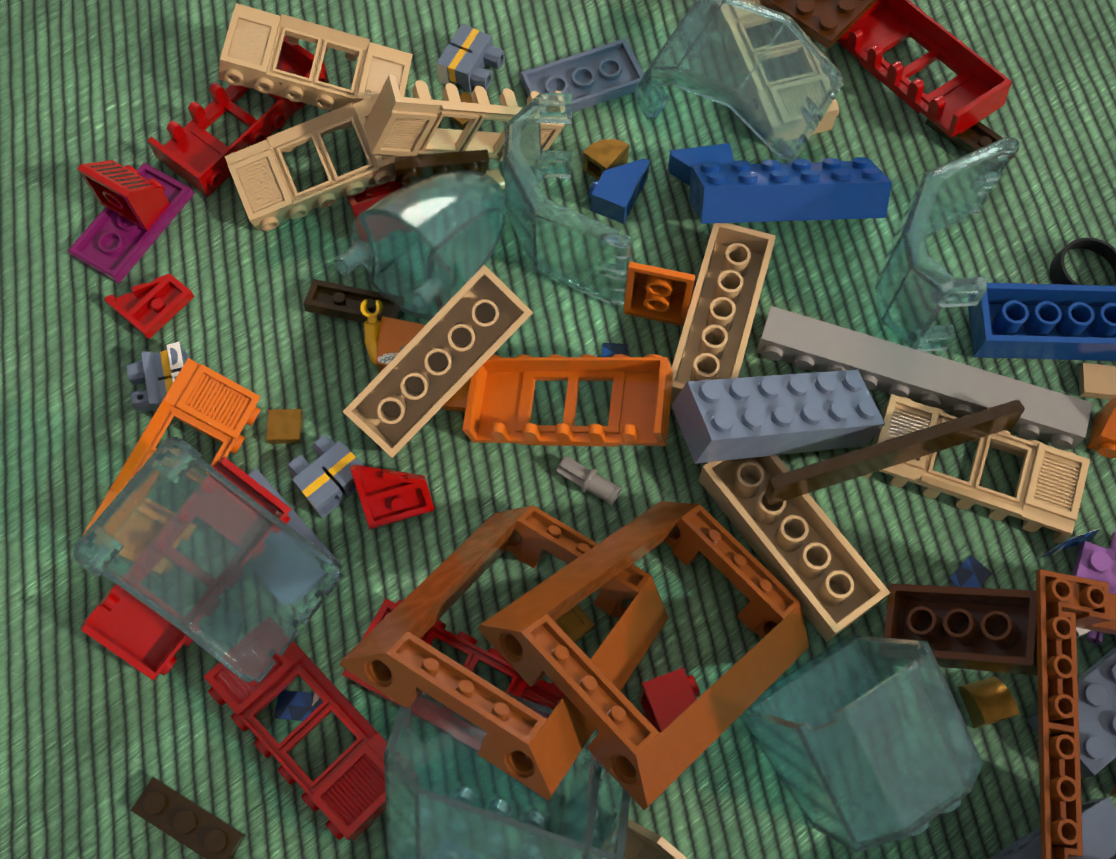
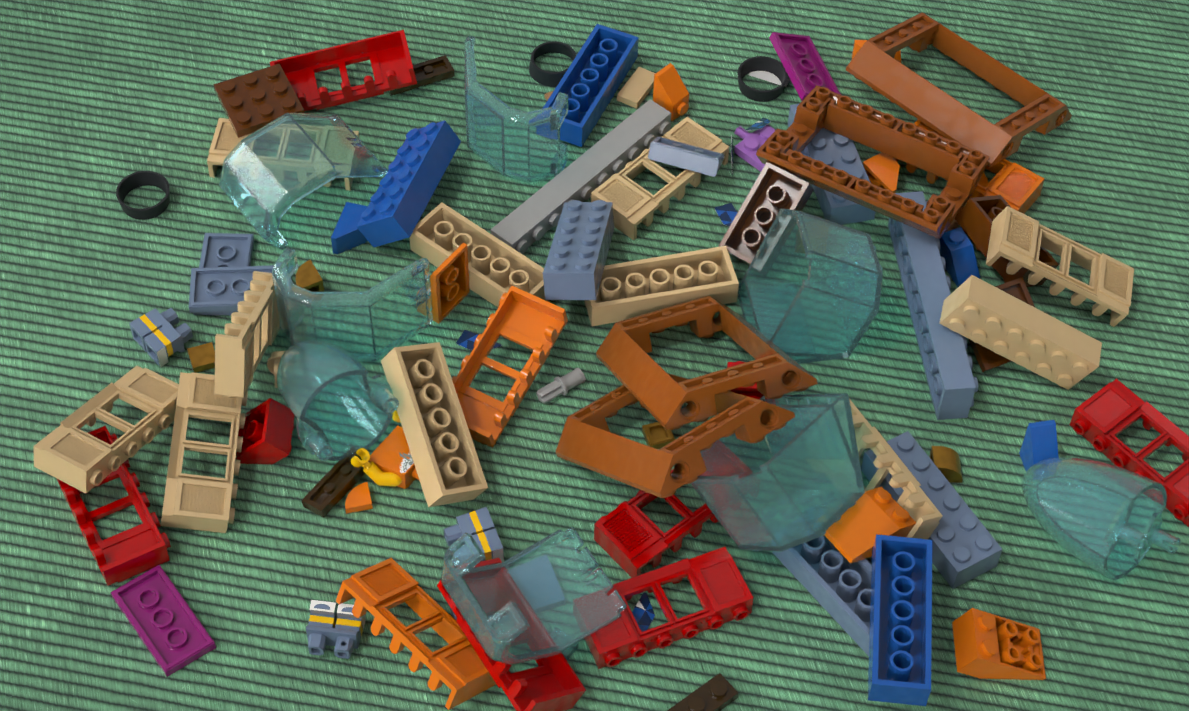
camera: 70 degrees left, 15 degrees down
(125, 191) = (148, 600): red slope -> none
(151, 303) = (255, 622): red wing -> none
(284, 426) = (416, 560): pearl gold tile -> none
(344, 334) = (358, 499): none -> orange tile
(390, 494) = (513, 503): red wing -> none
(414, 168) = (264, 374): dark brown plate -> none
(559, 72) = (220, 287): none -> sand blue tile
(618, 189) = (340, 278): blue slope -> none
(892, 452) = (636, 204): dark brown tile -> none
(1017, 484) = (685, 156): none -> slope

